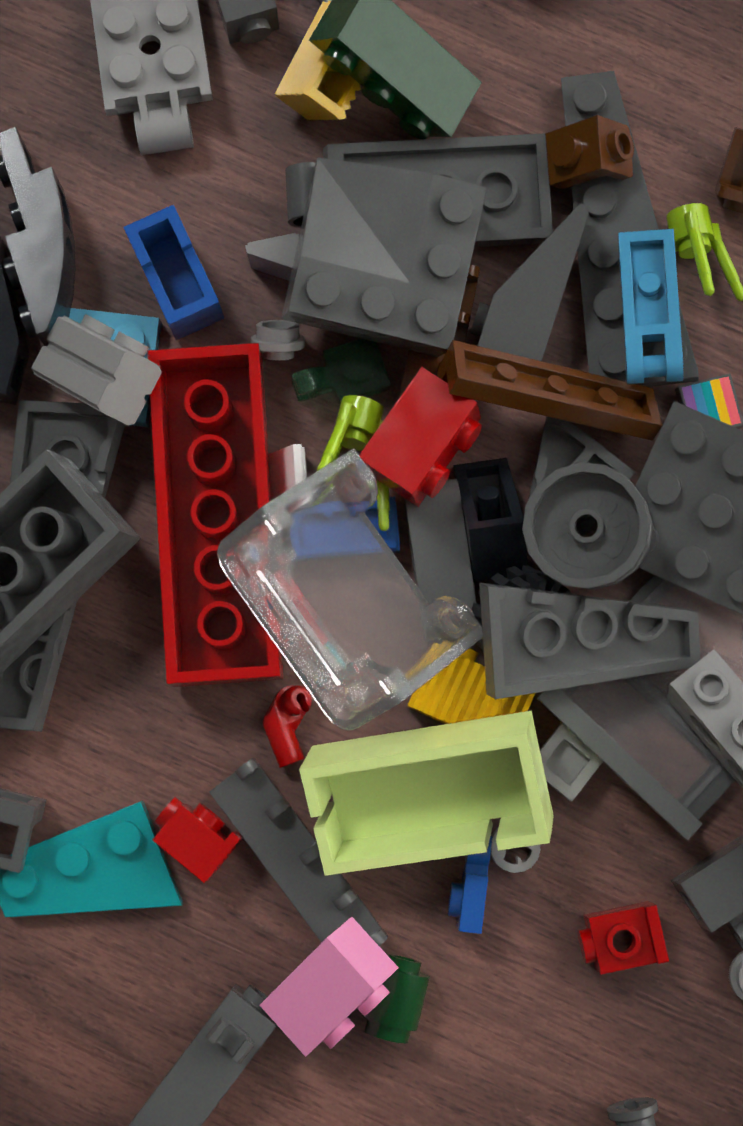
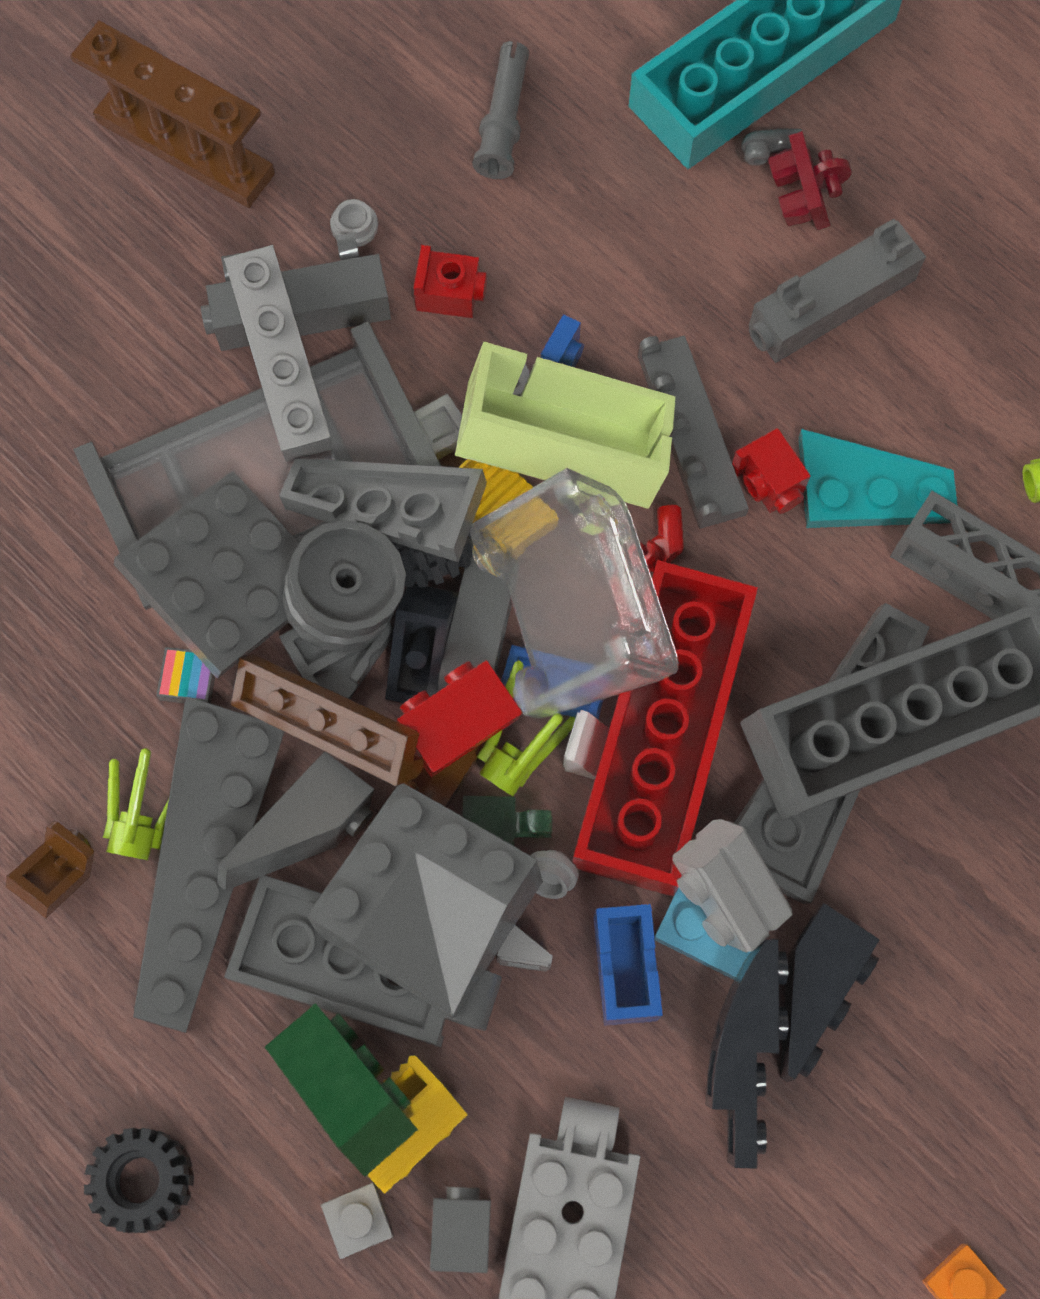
camera: 160 degrees left, 10 degrees down
(329, 986) = (700, 316): bright pink brick -> none
(402, 1007) = (650, 299): dark green brick -> none
(589, 152) = (193, 937): reddish brown bracket -> none
(650, 304) = (202, 767): dark azure plate -> none

